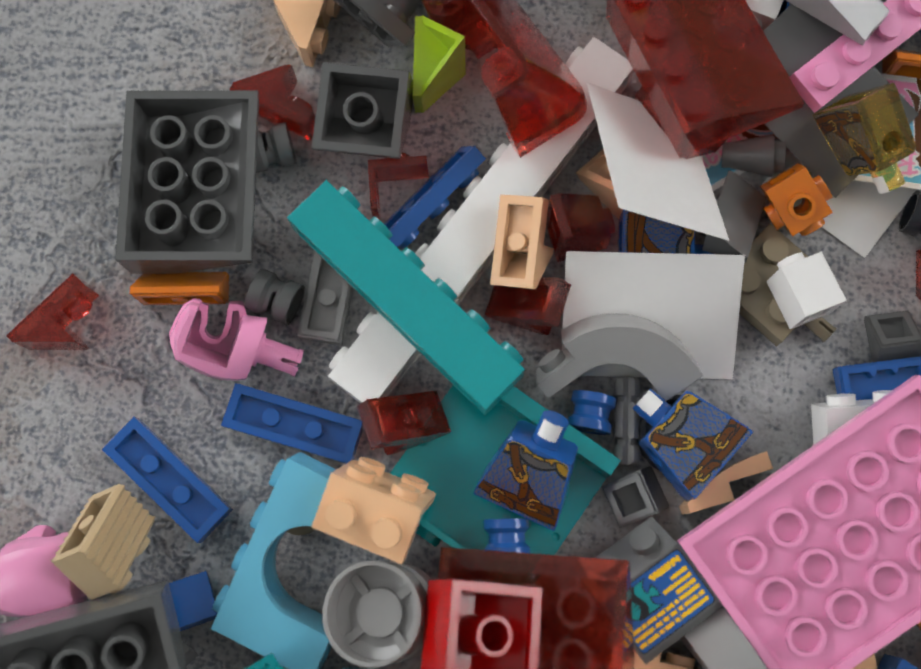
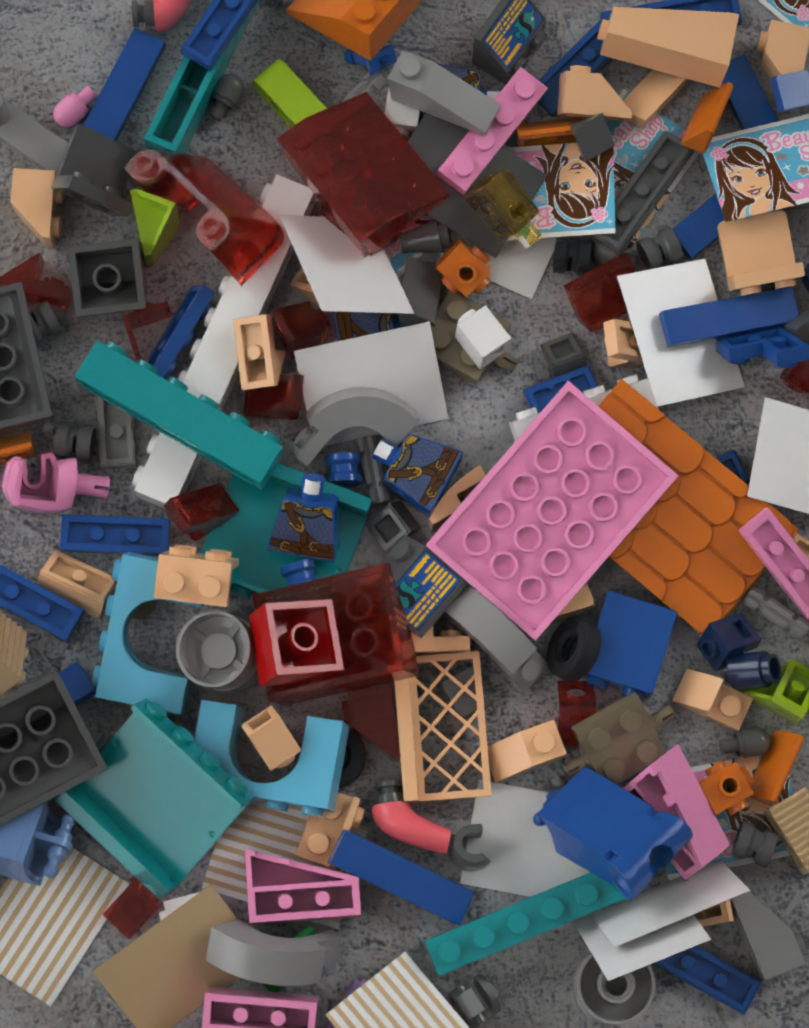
camera: 20 degrees left, 0 degrees up
(231, 470) = (77, 583): none -> light nougat slope

